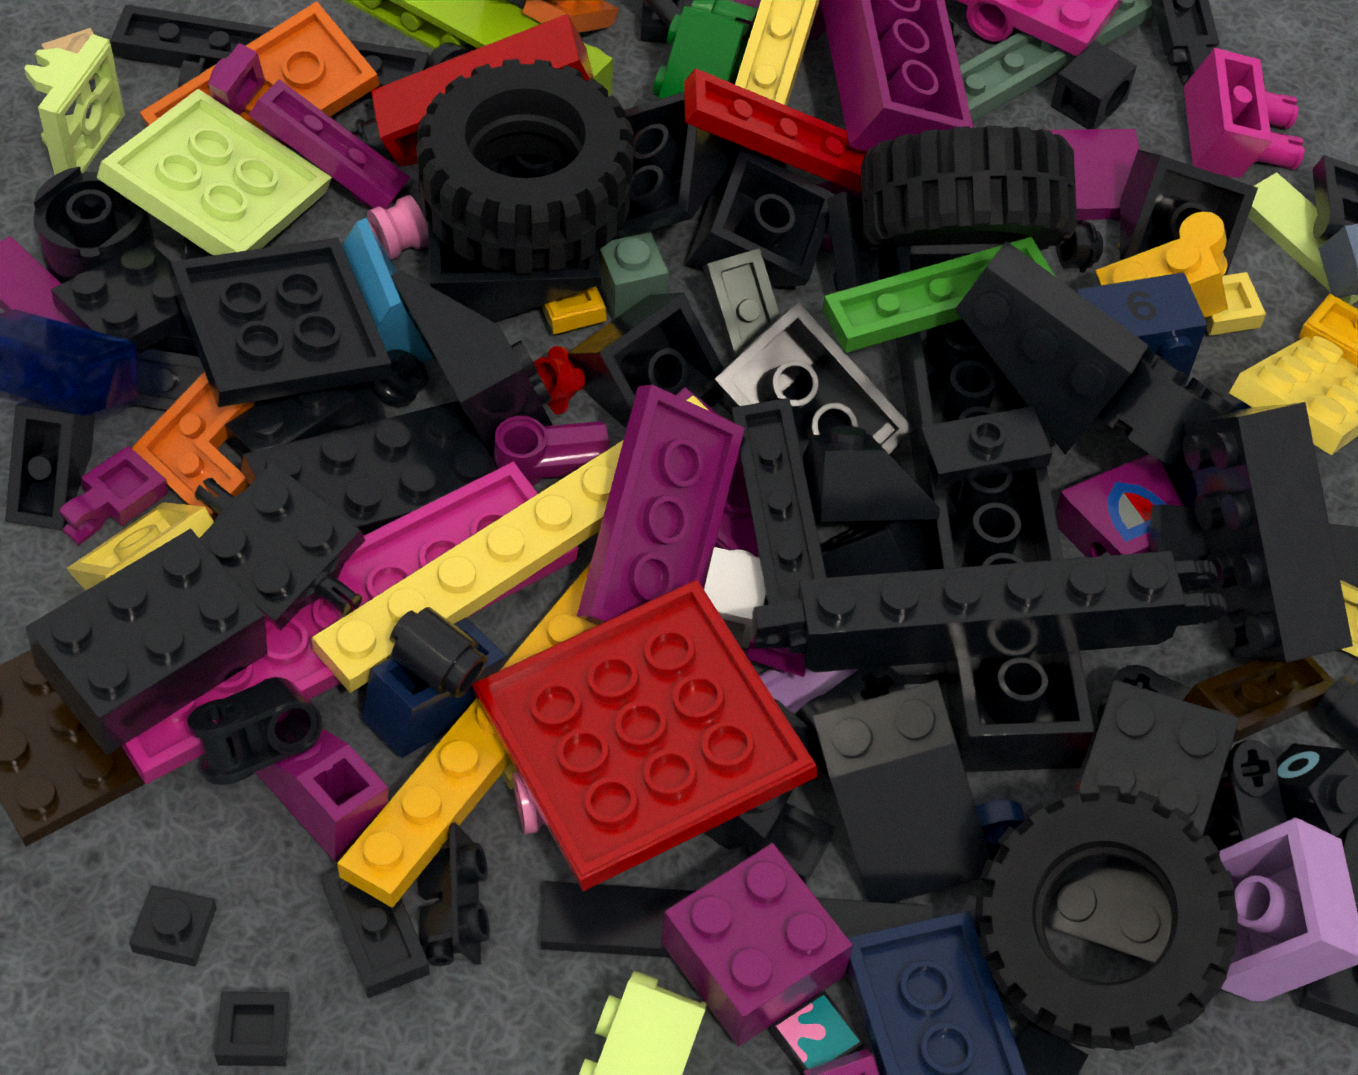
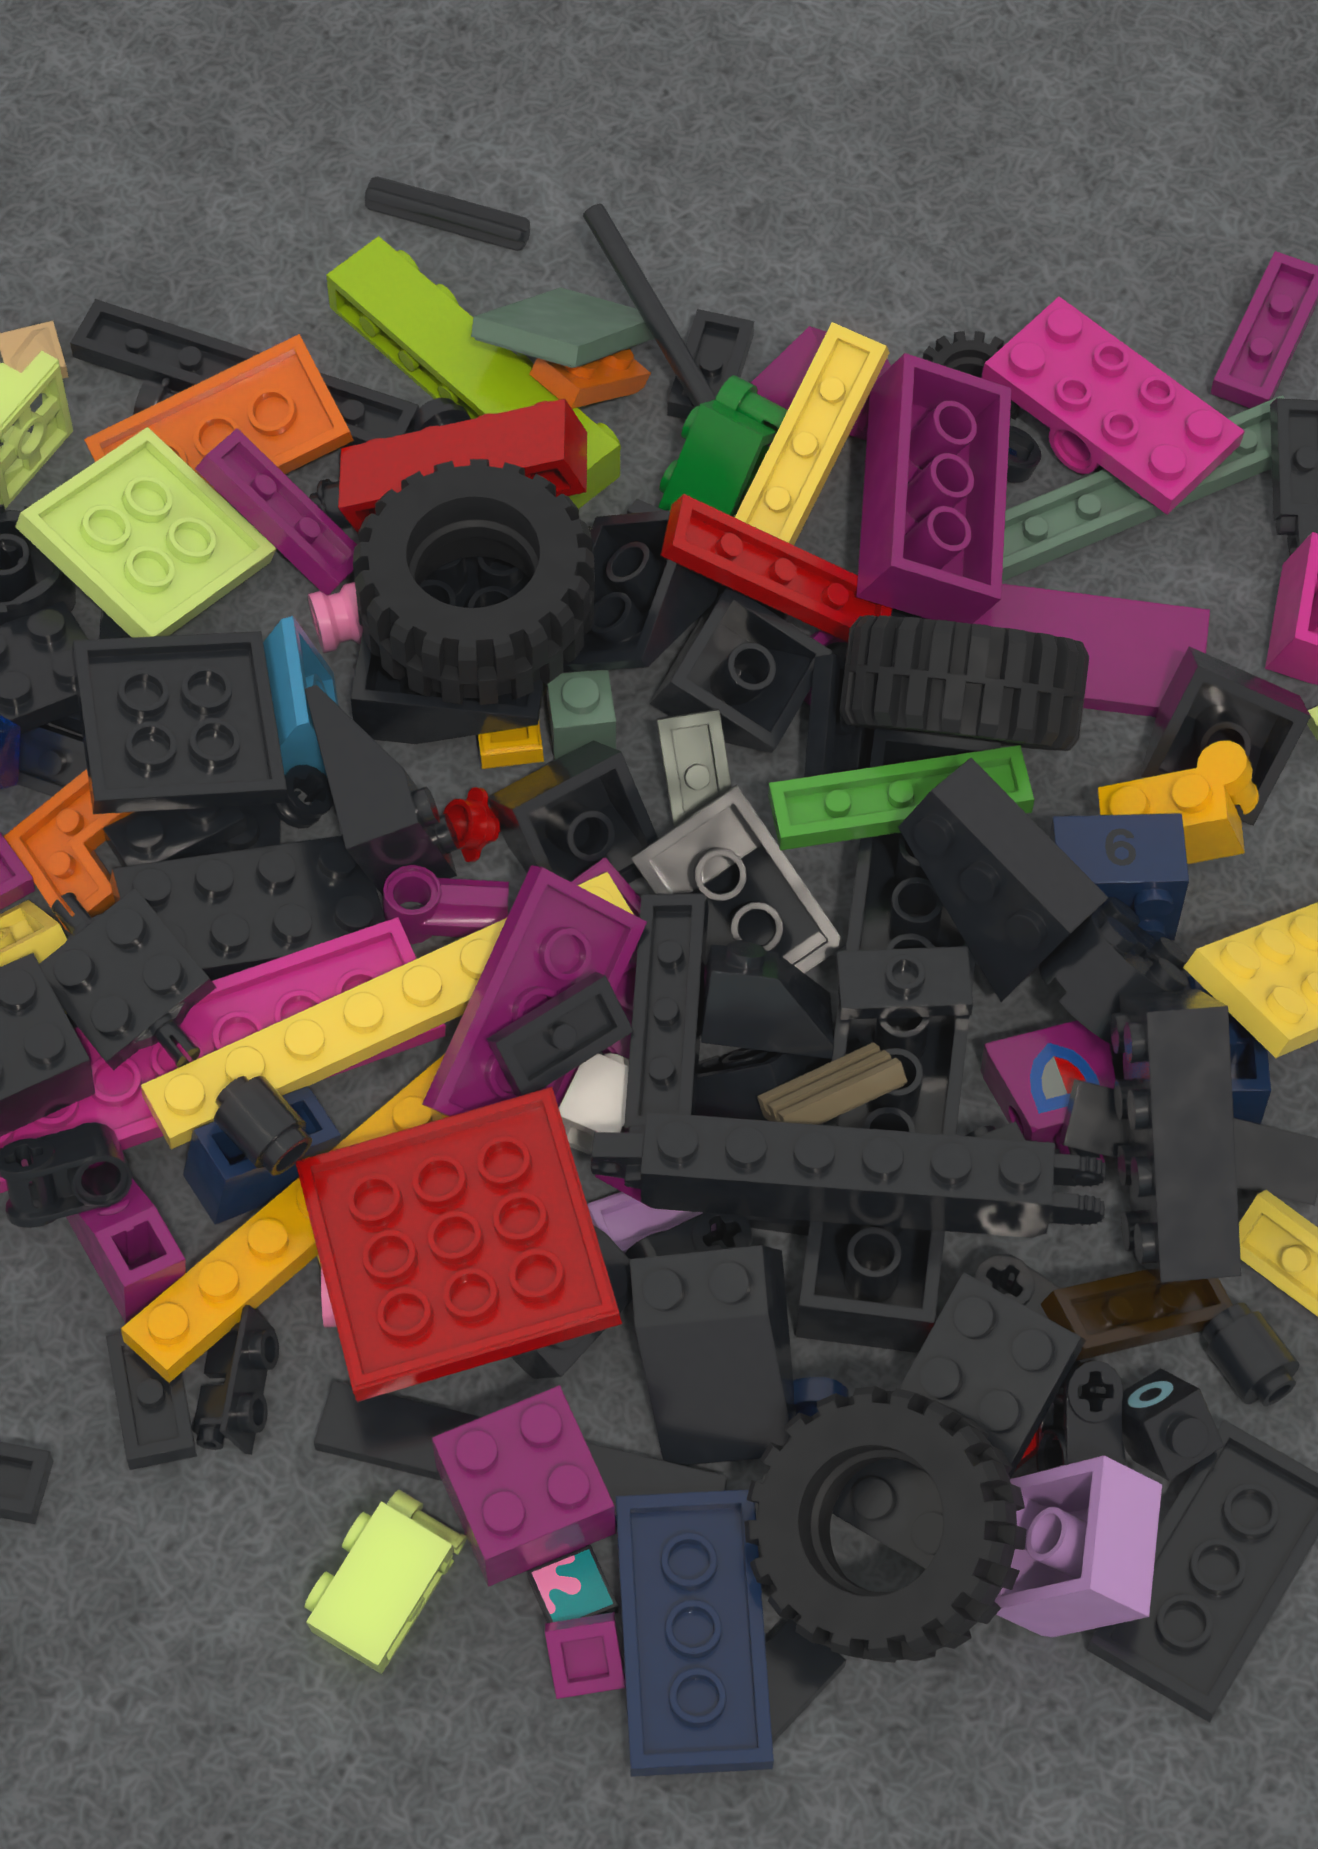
camera: 15 degrees right, 5 degrees up
(237, 79) = (190, 422): magenta plate -> none
(692, 533) = (560, 1035): none -> black plate
(798, 838) = (598, 1385): black plate -> none
(955, 538) = (834, 1087): none -> dark tan tile
(1084, 244) = (1102, 747): black plate -> none
(1093, 86) = (1174, 549): black brick -> none
(1243, 305) = (1264, 847): light yellow plate -> none

